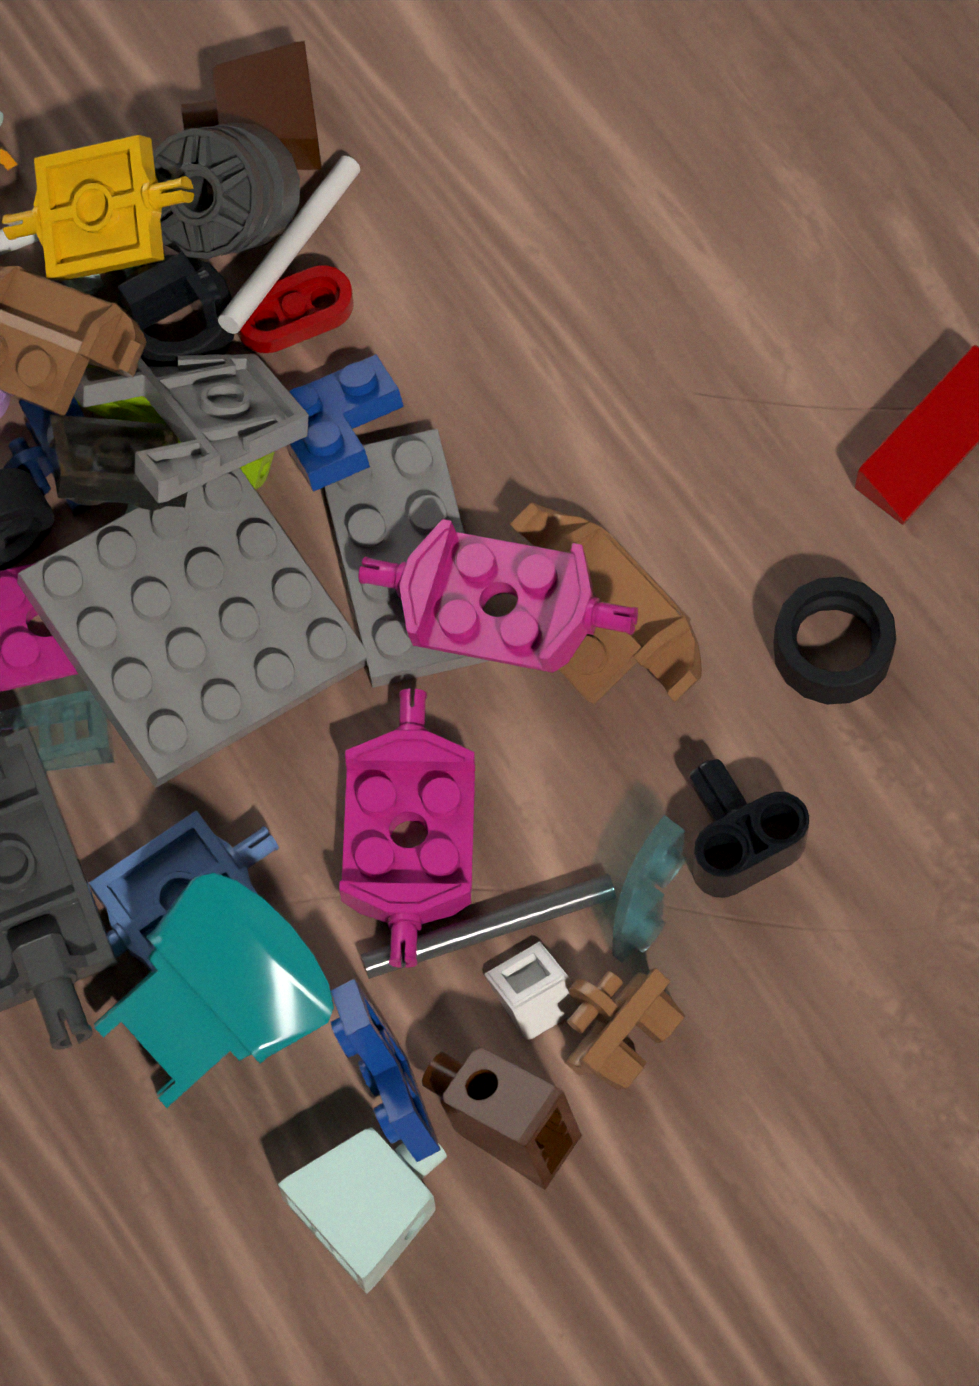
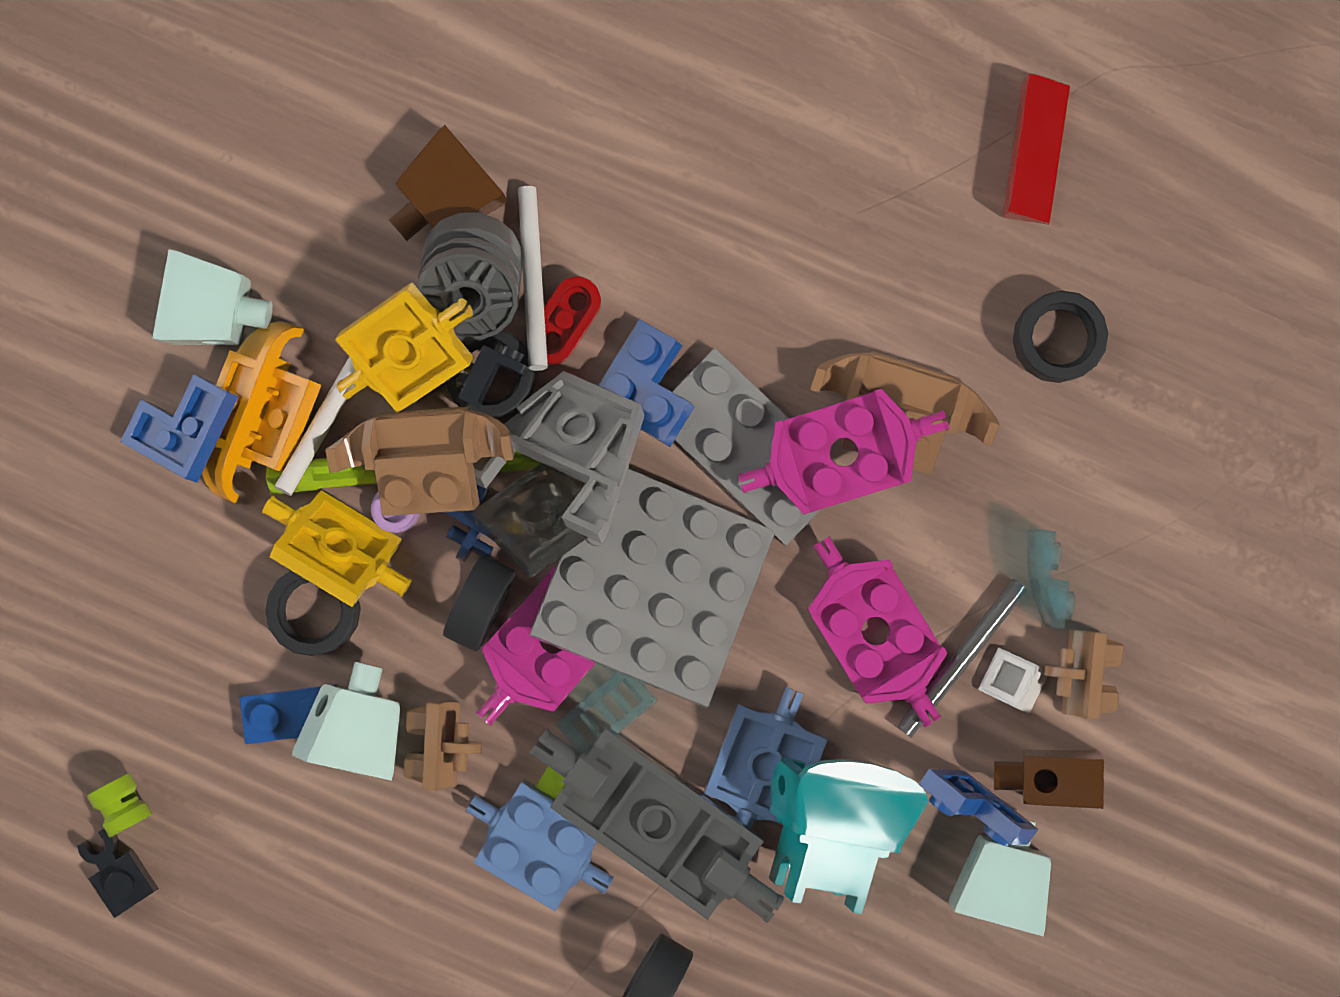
camera: 45 degrees left, 20 degrees up
(740, 832) = (1081, 500): black beam -> none

